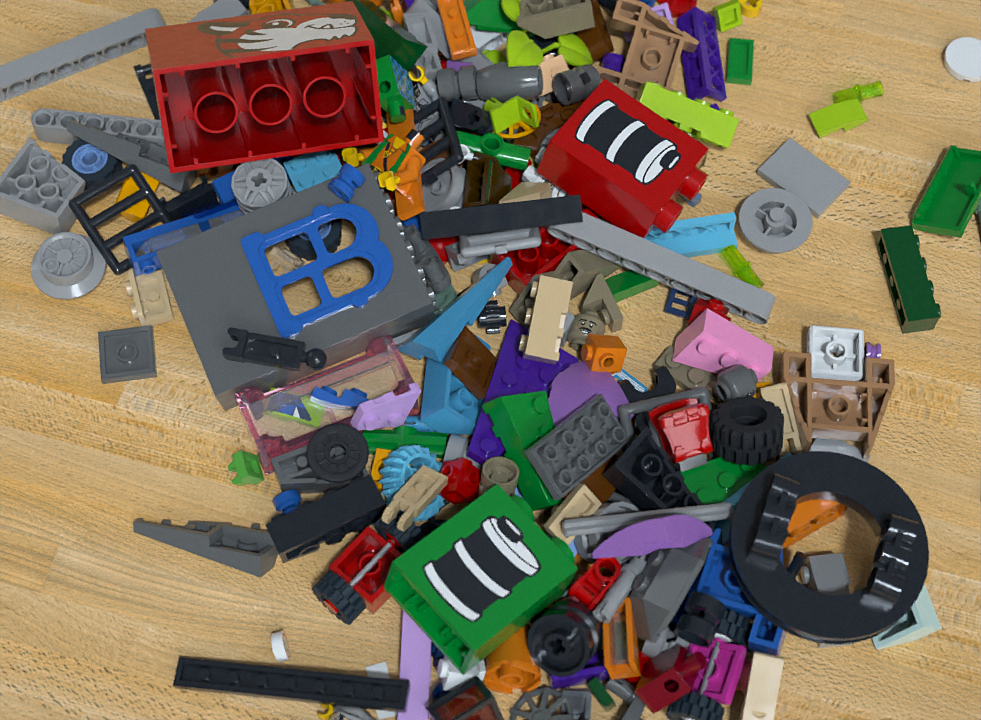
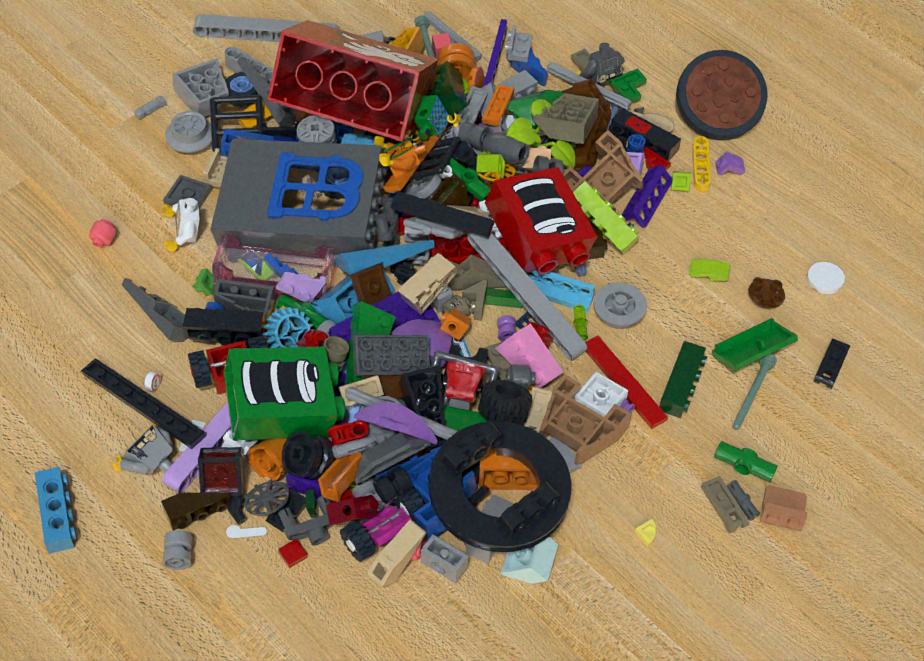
camera: 30 degrees right, 10 degrees down
(57, 474) = (102, 233): none -> coral head
(160, 395) = (187, 222): none -> white torso
(272, 351) = (255, 219): black plate -> none
(337, 436) = (255, 283): black wheel -> none
(346, 182) = (359, 148): blue wheel -> none
(415, 496) = (276, 334): tan hinge -> none
(664, 324) = (506, 327): none -> medium lavender wheel
(740, 61) = (671, 210): green tile -> none
(804, 175) = (661, 293): light grey tile -> none
(811, 673) = (444, 558): none -> light grey brick
(836, 314) = (617, 372): none -> red tile
(861, 92) = (736, 263): clear neon green axle -> none
(920, 113) = (766, 292): none -> reddish brown dish

